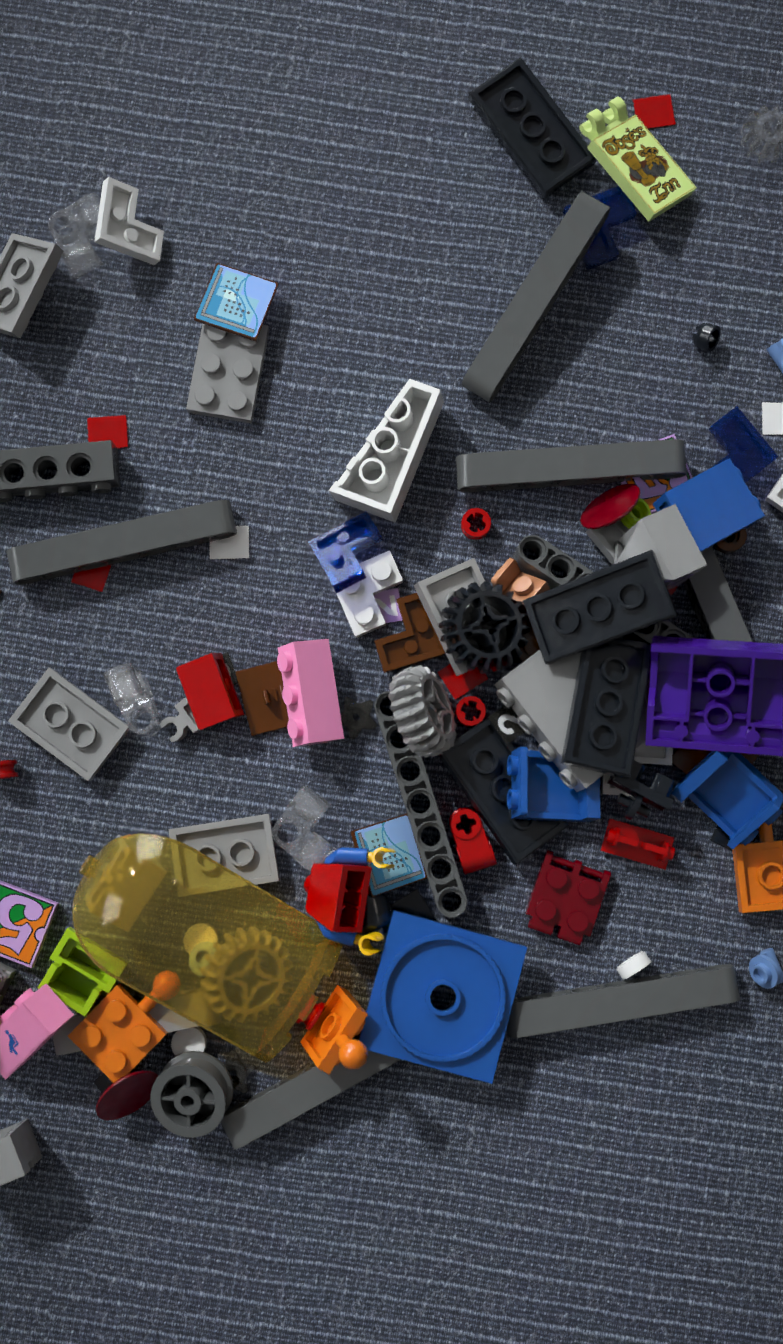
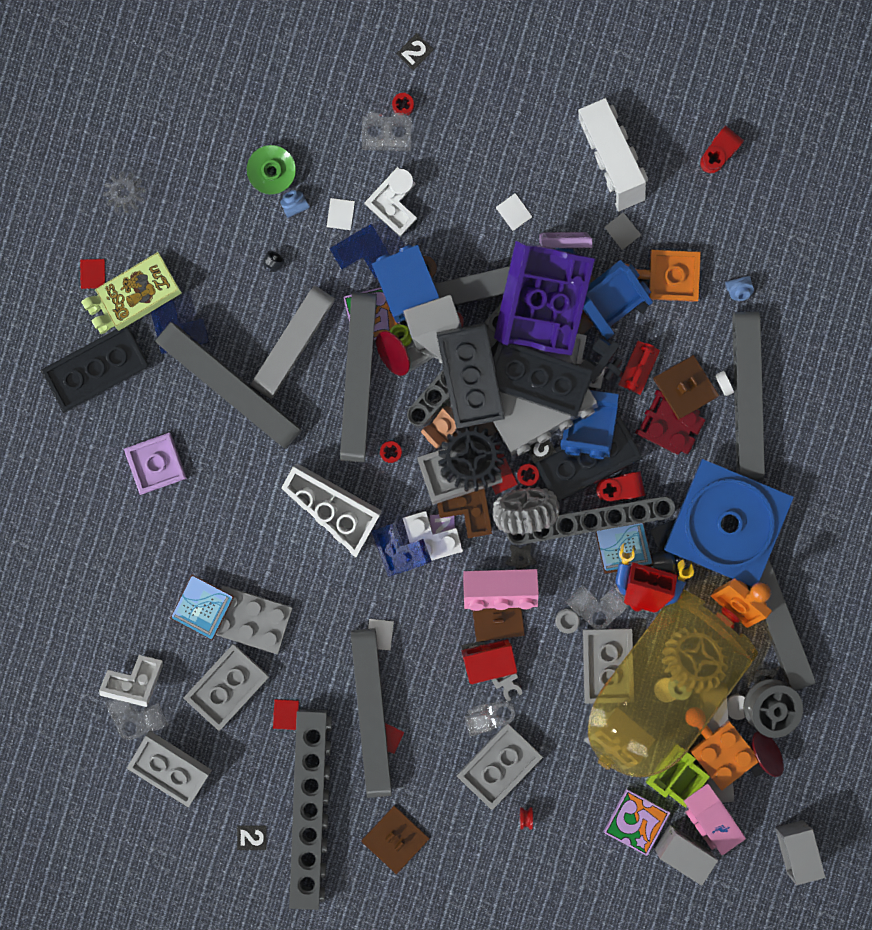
camera: 80 degrees left, 5 degrees up
(134, 348) = (226, 687): none -> light grey plate
(278, 791) = (567, 620): none -> light grey tile
(418, 221) = (155, 463): none -> lavender tile
(604, 375) = (293, 342): none -> light grey beam
(620, 912) = (686, 387): none -> reddish brown piece

